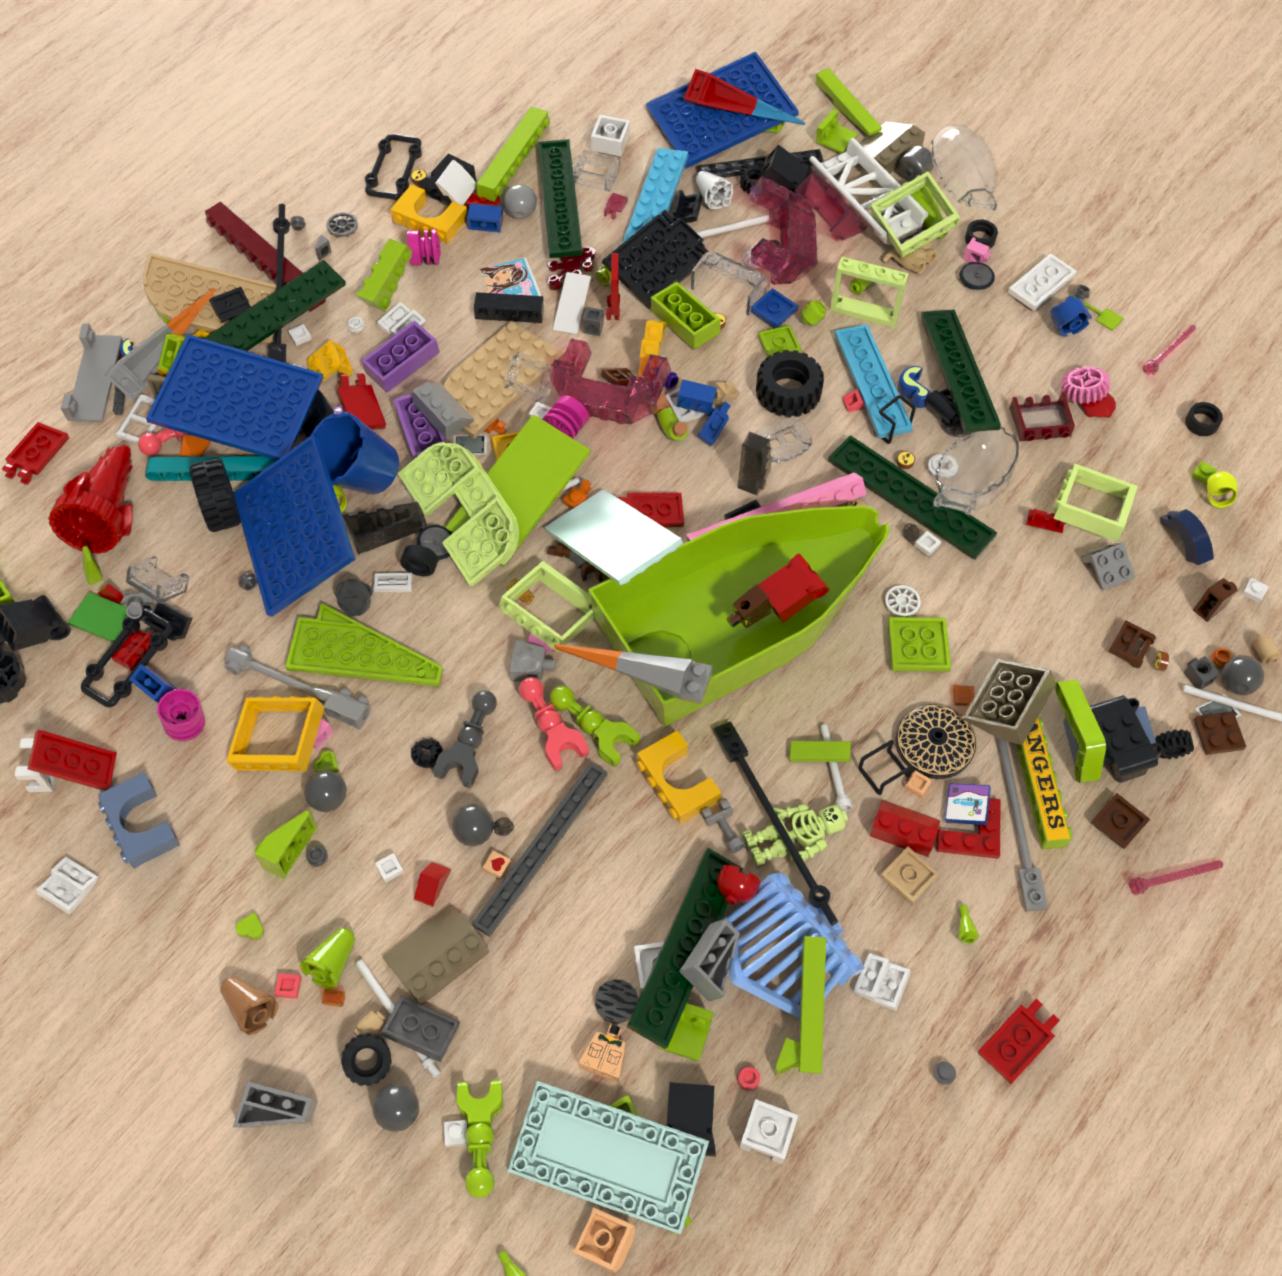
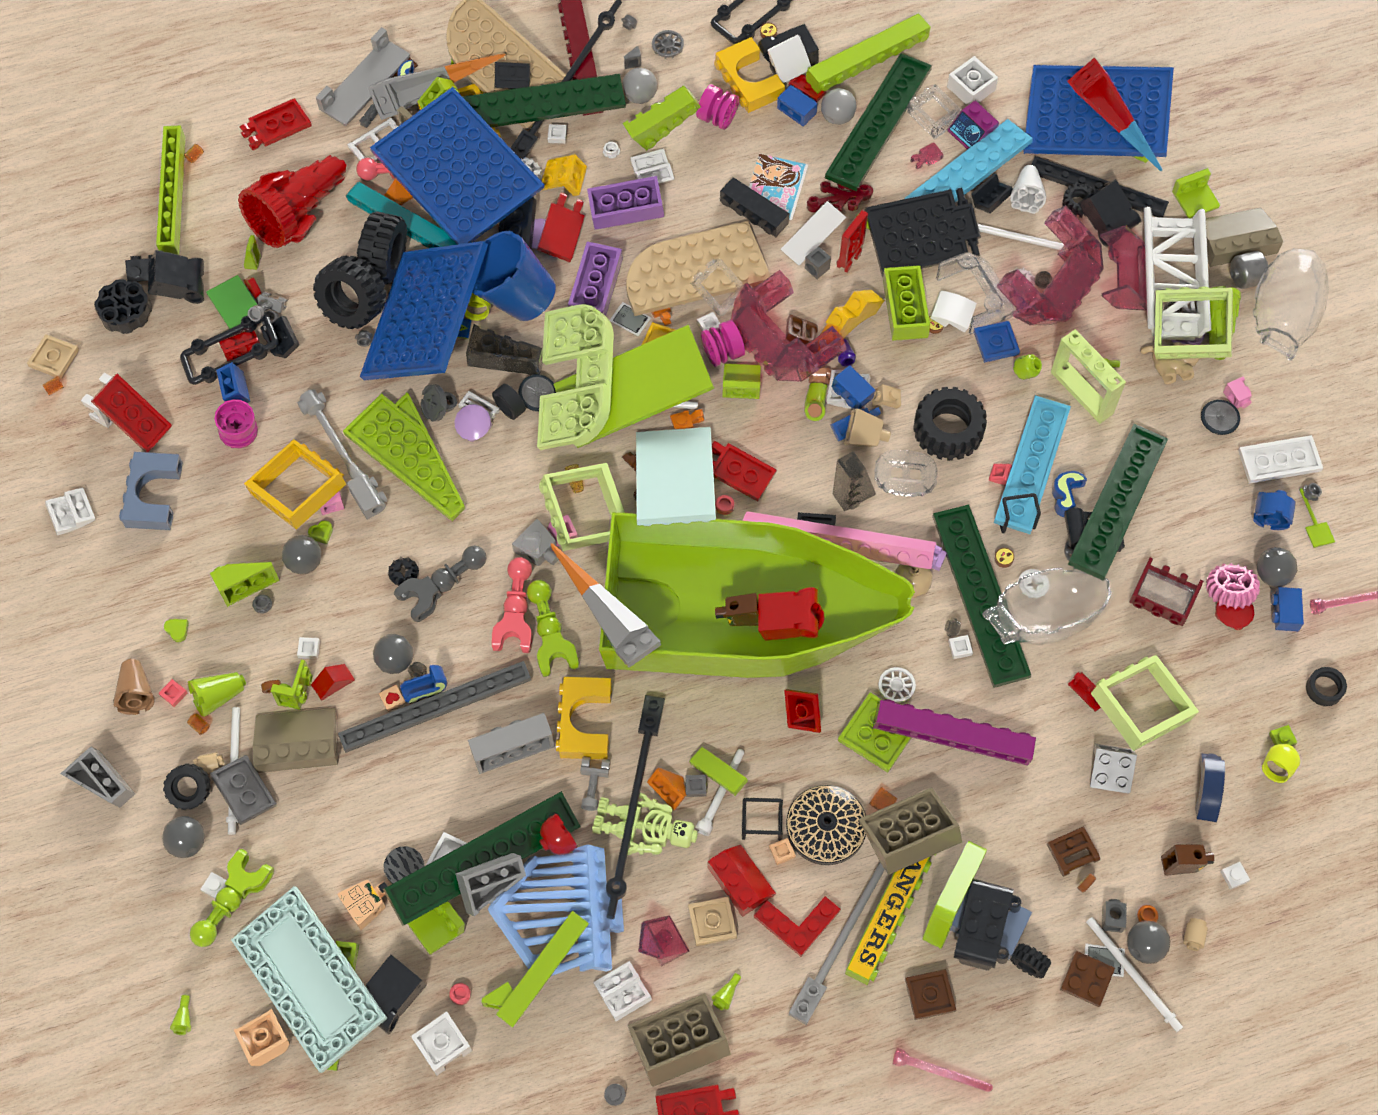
camera: 35 degrees right, 5 degrees up
(155, 582) = (291, 296): clear panel -> none
(206, 566) = (362, 280): none -> black tyre
(345, 262) = (639, 85): none -> light grey piece
(379, 921) = (266, 686): none -> dark orange tile
(398, 596) = (472, 422): none -> lavender dish
(405, 918) = (297, 695): none -> lime bracket
(441, 408) = (620, 273): light grey slope -> none
(520, 834) = (425, 685): none -> blue animal
(601, 441) = (741, 381): none -> lime bracket
(634, 166) = (972, 125): none -> slope
(634, 834) = (511, 743): none -> light grey brick
(724, 302) = (953, 310): none -> white slope
(728, 423) = (865, 430): none -> tan torso
(779, 340) = (977, 377): lime tile -> none
(789, 790) = (668, 786): none -> orange slope
(810, 775) = (695, 785): none -> flat silver plate
(846, 102) = (1234, 167): lime slope -> none
(853, 661) = (802, 710): none -> red slope
(883, 918) = (661, 940): none -> clear pink slope
(960, 990) = (679, 1040): none -> dark tan slope
(968, 804) = (808, 895): tile -> none
(977, 608) = (954, 732): none -> magenta brick
(983, 226) = (1265, 367): black tyre -> none
(1105, 353) = (1277, 567): none -> dark grey piece
(1134, 380) = (1287, 609): none -> blue brick

